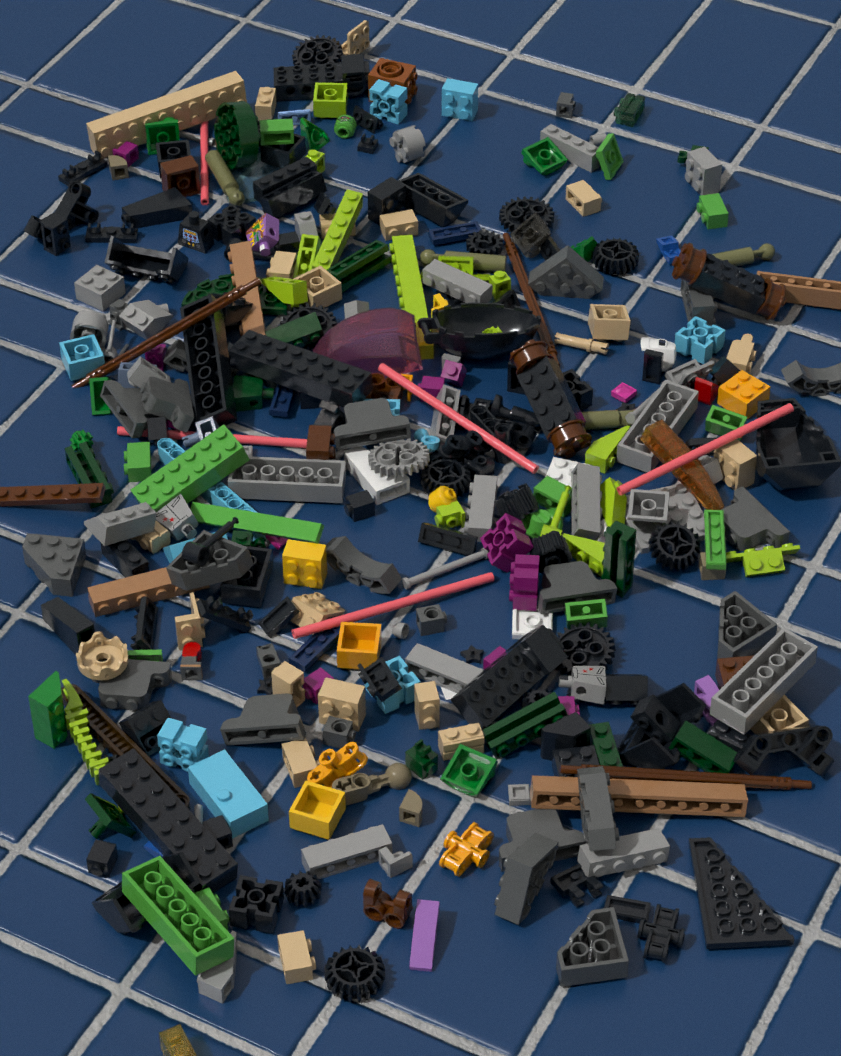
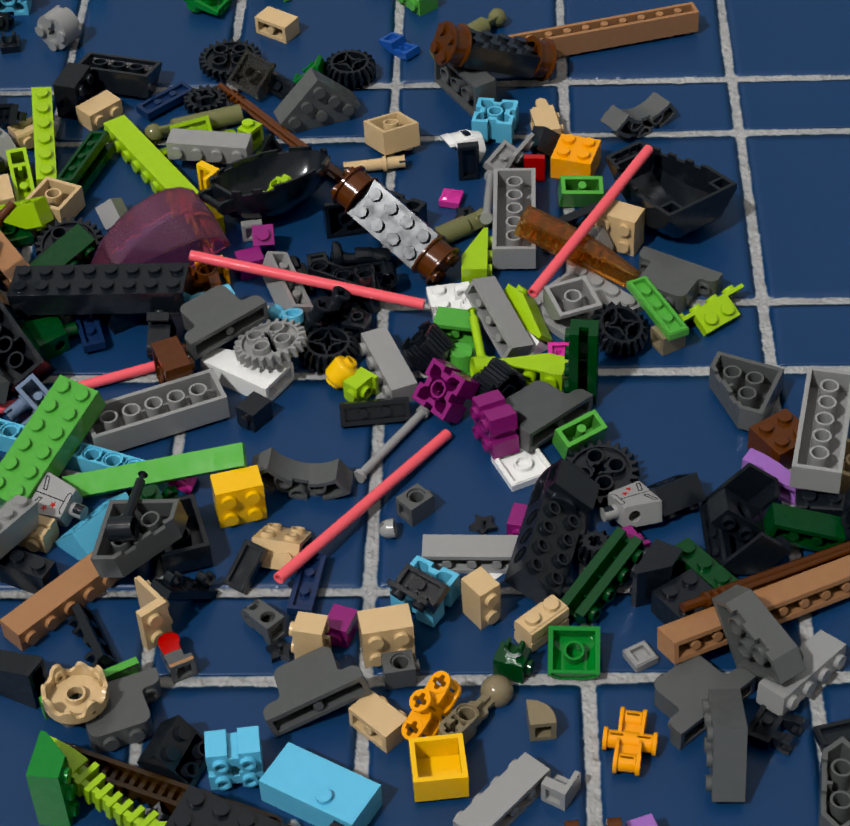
camera: 25 degrees left, 0 degrees up
(358, 644) = (359, 562): light orange piece -> none

